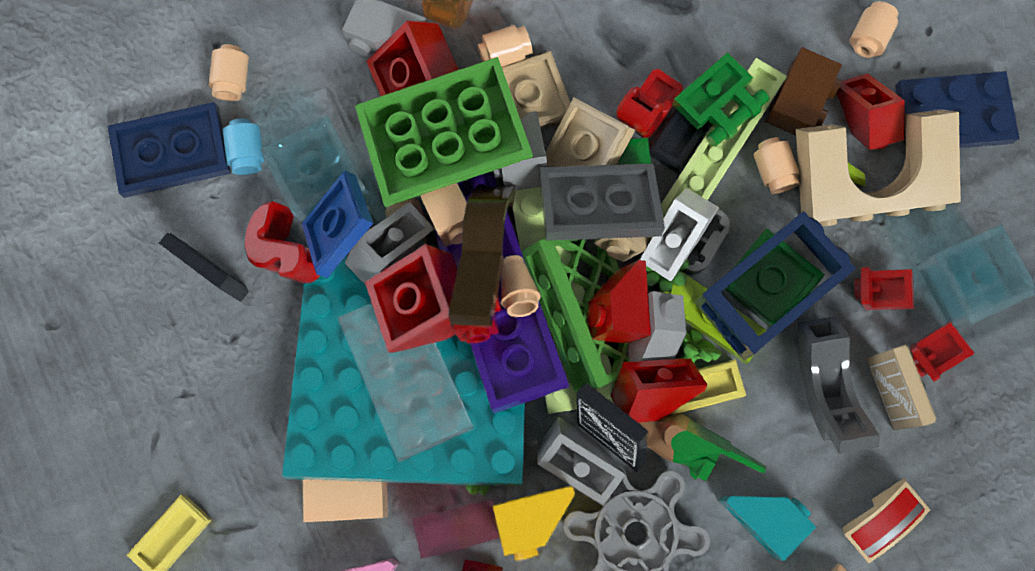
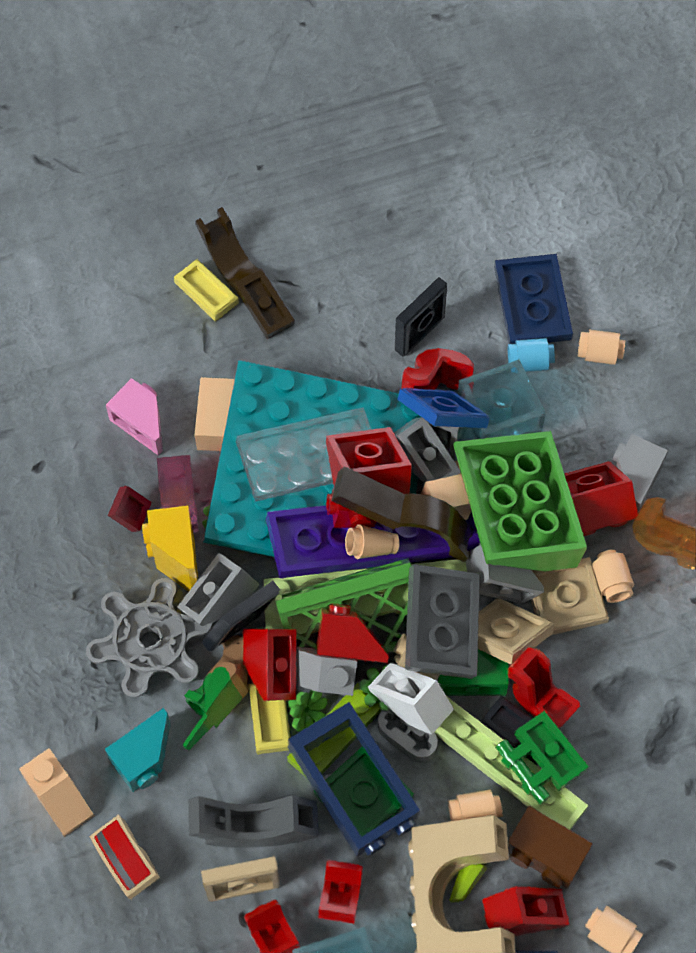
camera: 95 degrees right, 15 degrees down
(147, 492) = (242, 275): none -> dark brown piece

